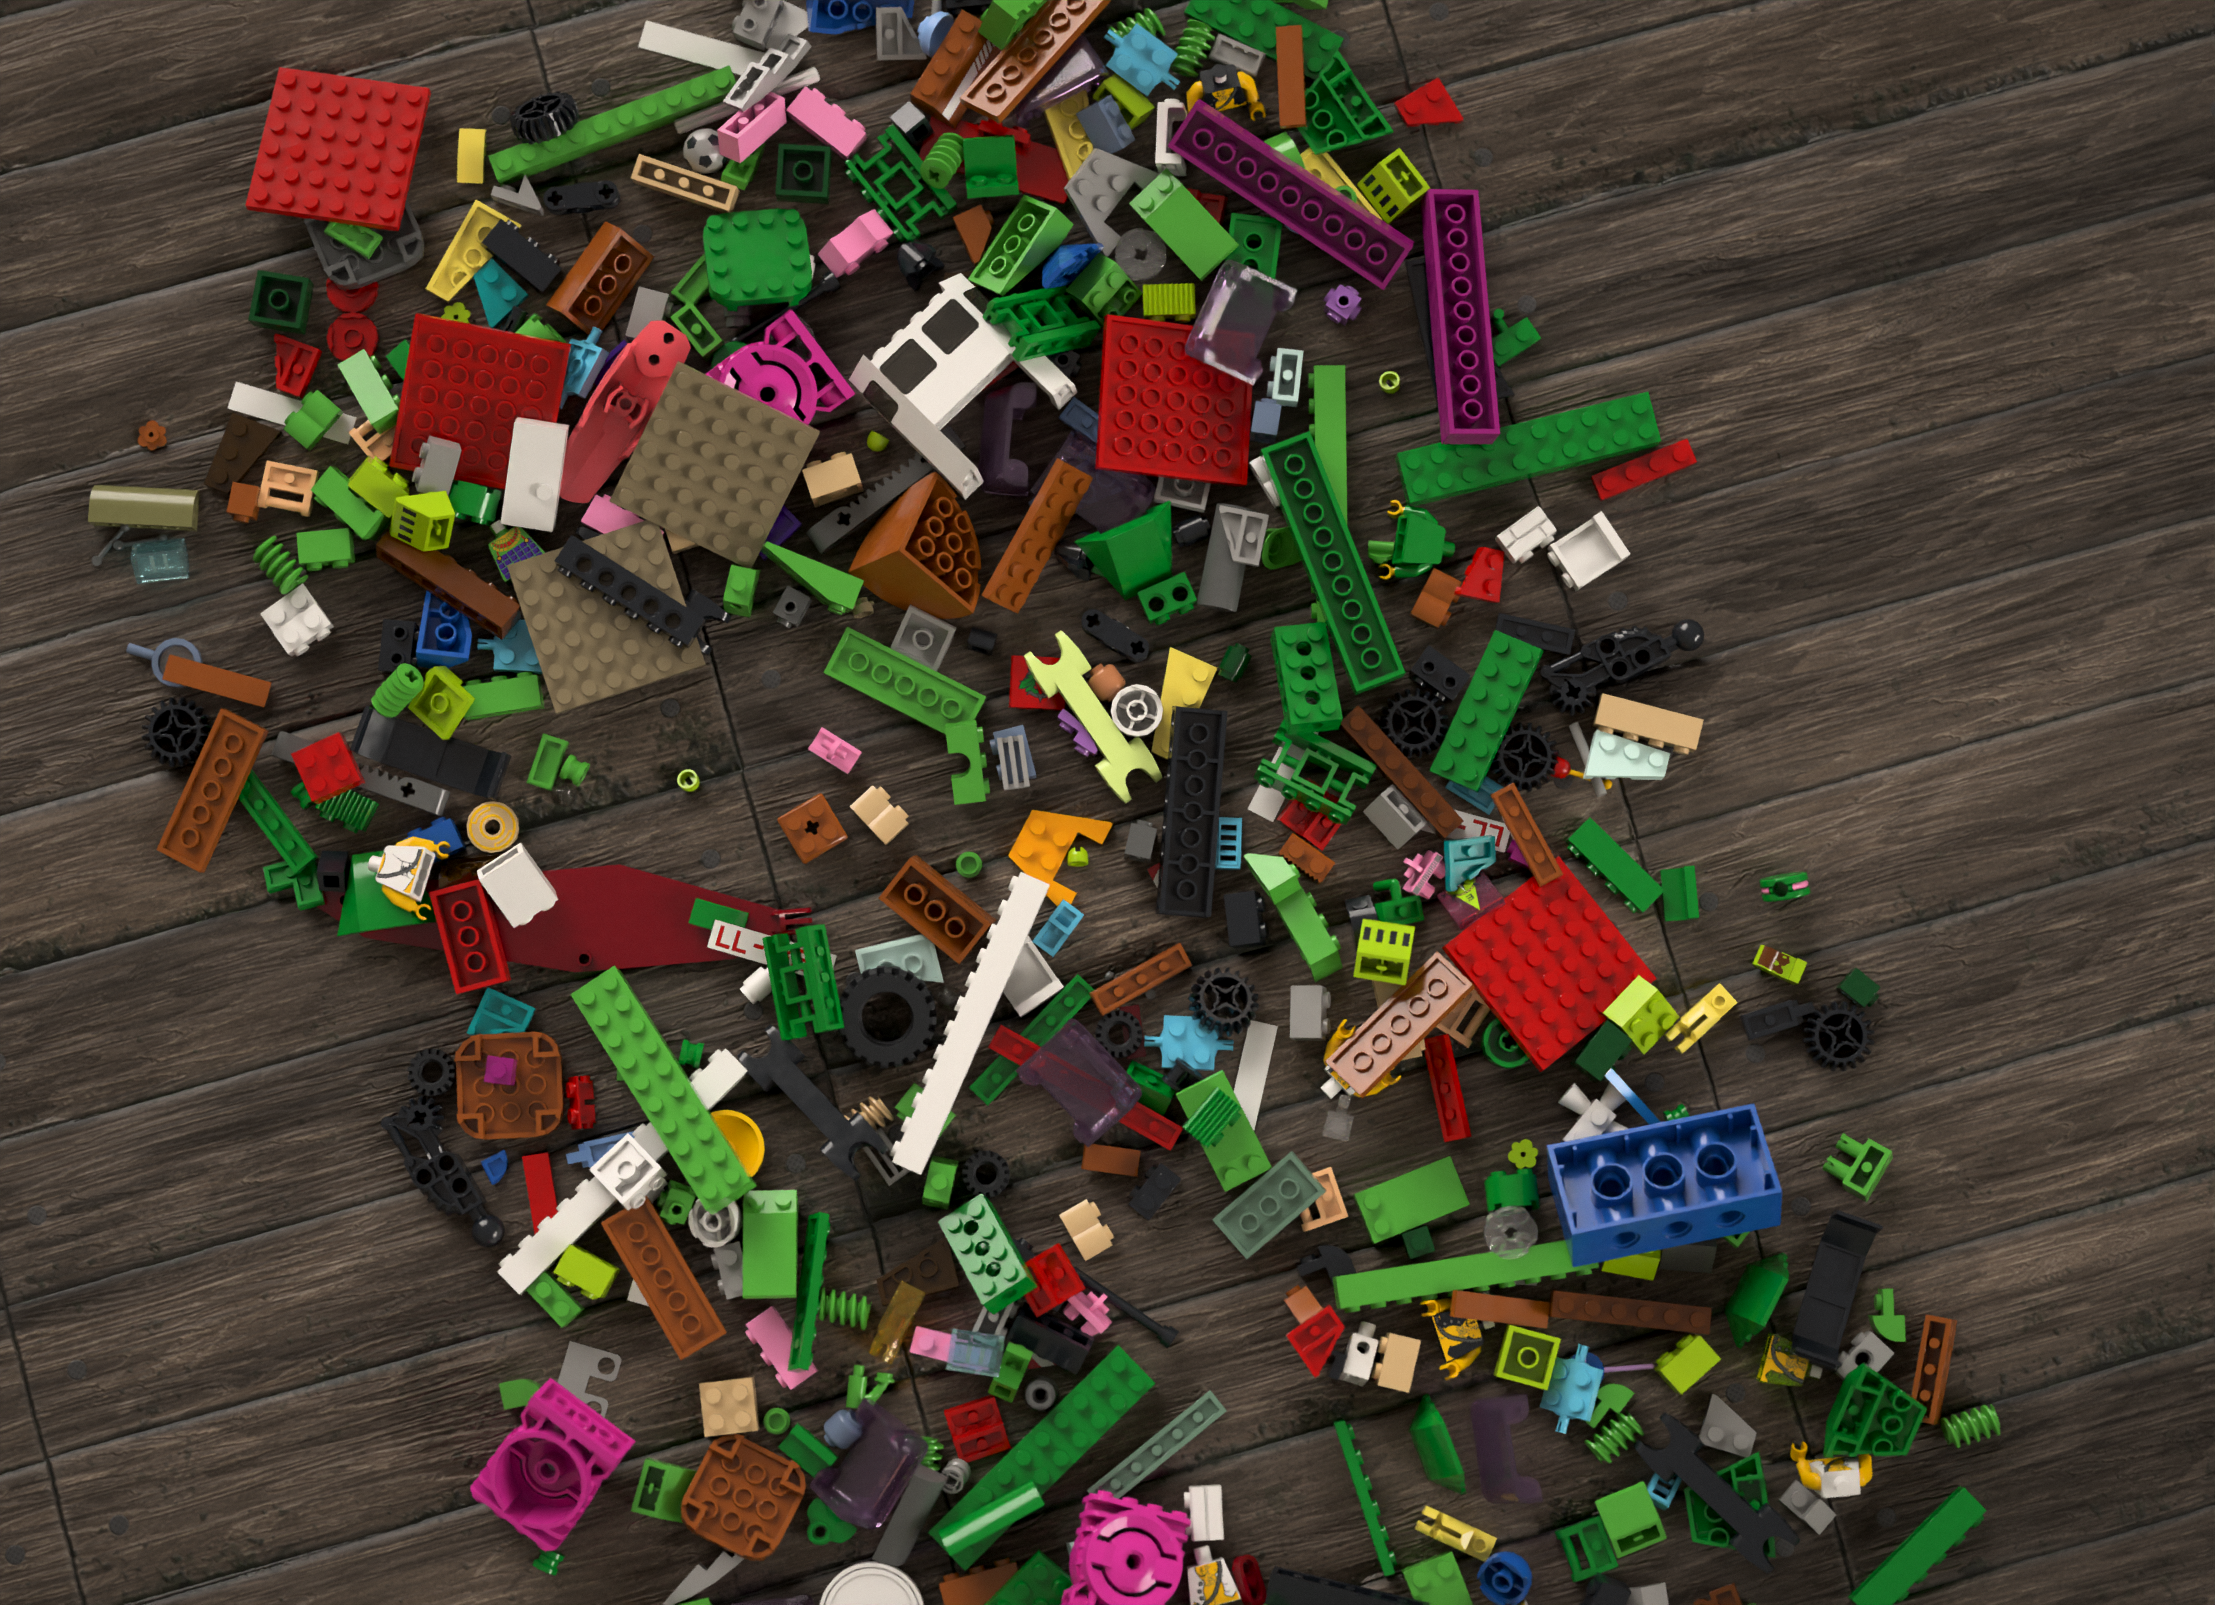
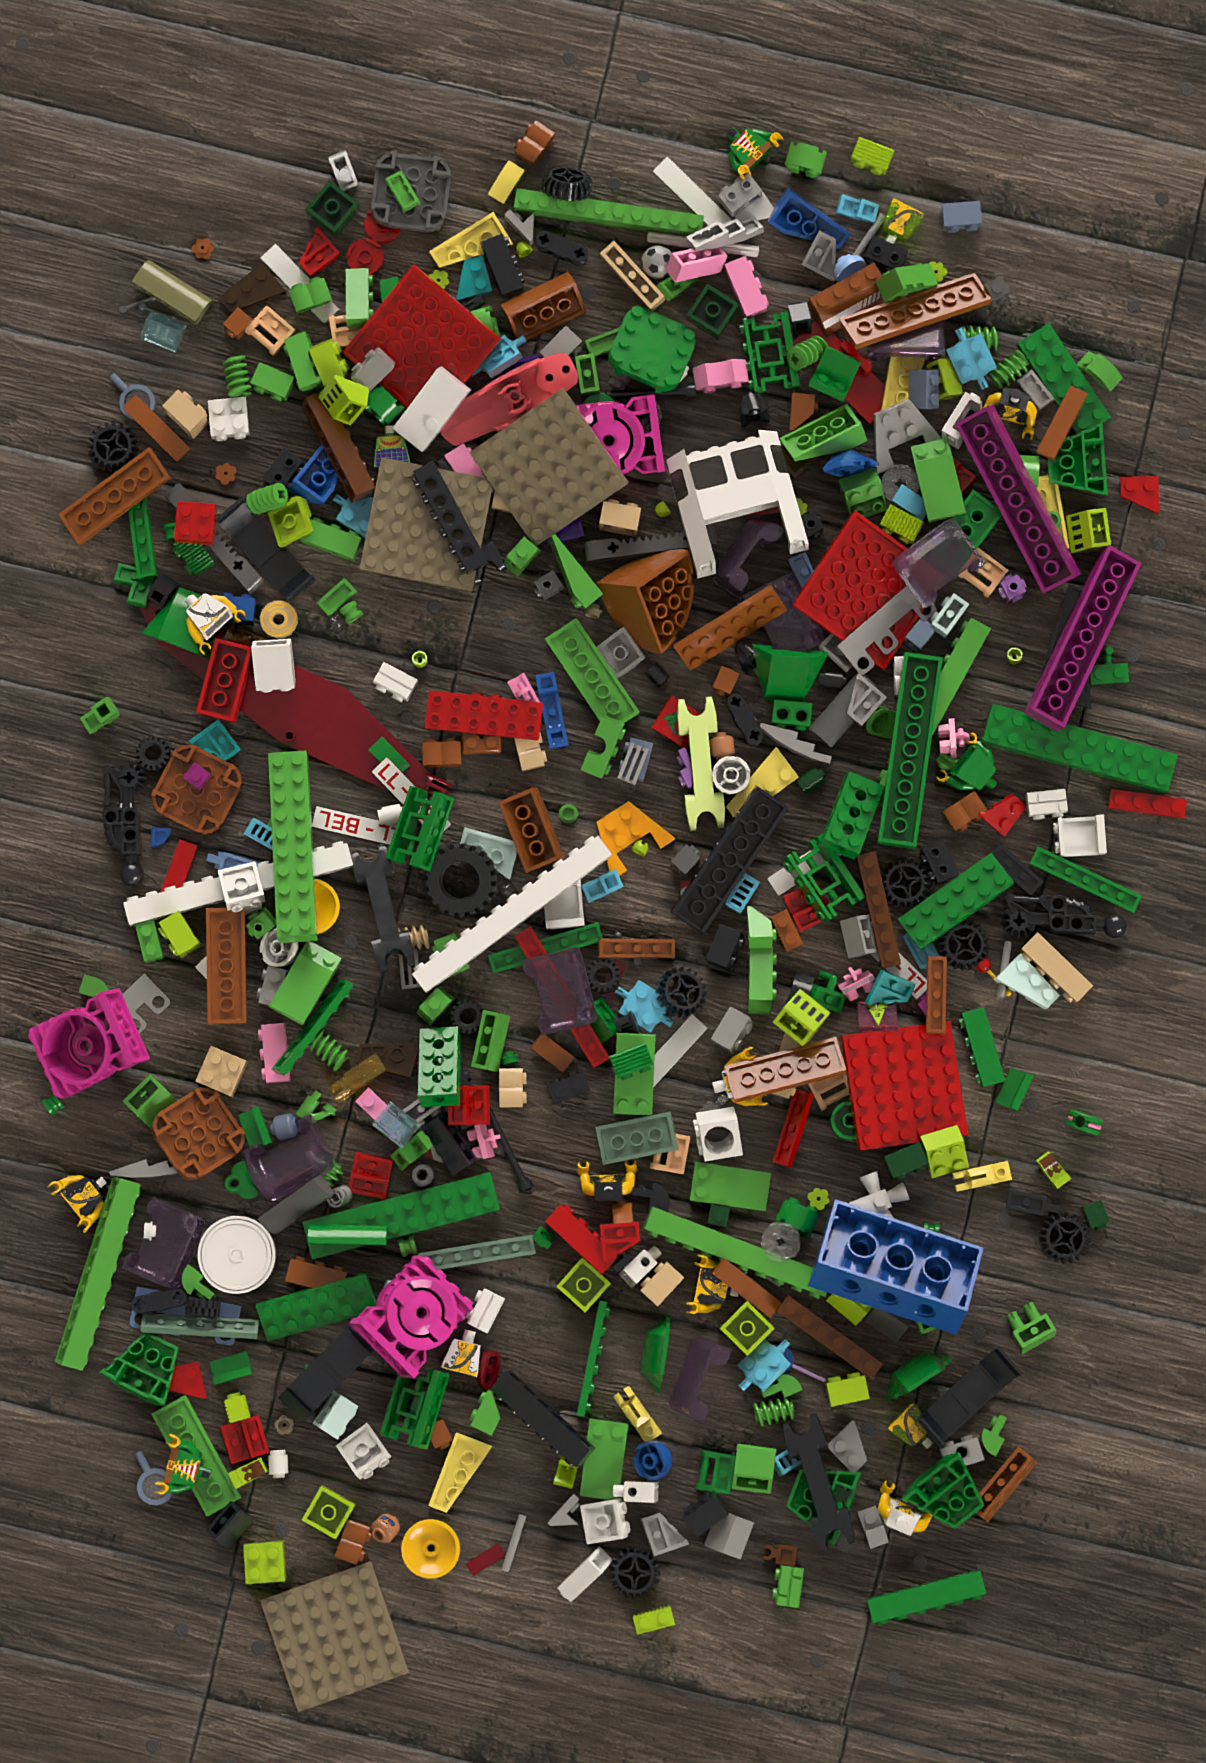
camera: 30 degrees right, 0 degrees up
(242, 644) = (185, 413): none -> tan brick
(268, 249) = (343, 170): none -> light grey slope
(323, 688) = (226, 468): none -> dark orange plant
(338, 149) = (424, 131): red plate -> none
(343, 1062) = (101, 714): none -> bright green brick
(479, 91) = (534, 143): none -> dark orange brick
(537, 224) = (523, 249): none -> lime hinge
(578, 1092) = (237, 818): red hinge -> none
(599, 1095) = (260, 840): none -> medium azure slope
(674, 824) = (395, 682): none -> white brick
(691, 1053) = (323, 834): green wheel -> none
(721, 1022) = (352, 825): none -> white sticker
(777, 1421) = (246, 1098): bright green plate -> none
(778, 878) = (441, 753): none -> dark orange brick
(802, 804) = (483, 715): none -> red bracket
(880, 753) = (551, 710): none -> blue slope
(1030, 1188) = (490, 1041): none -> bright green brick
(1031, 339) = (796, 495): green fence -> none
(1063, 1195) = (509, 1058): none -> green plate
(1067, 604) = (725, 682): none -> dark orange brick
(1070, 1488) = (407, 1246): none -> bright green wheel
(1165, 269) = (910, 502): none -> medium azure slope
(1181, 631) = (788, 740): none -> light grey slope
(1211, 437) = (878, 627): none -> light grey piece
(1225, 1386) = (543, 1237): none -> green plate
(1267, 1282) = (607, 1186): none -> torso
(1267, 1362) = (579, 1237): none -> red brick
(1305, 1416) = (583, 1285): none -> lime brick
(1308, 298) = (991, 571): none -> light nougat plate
(1364, 514) = (948, 730): none -> bright pink hips
(1381, 1157) = (726, 1148): none -> white brick
(1622, 599) = (1085, 879): none -> green plate
(1631, 1097) = (907, 1199): dark azure sticker -> none
(1970, 1425) = (1004, 1533): bright green piece -> none

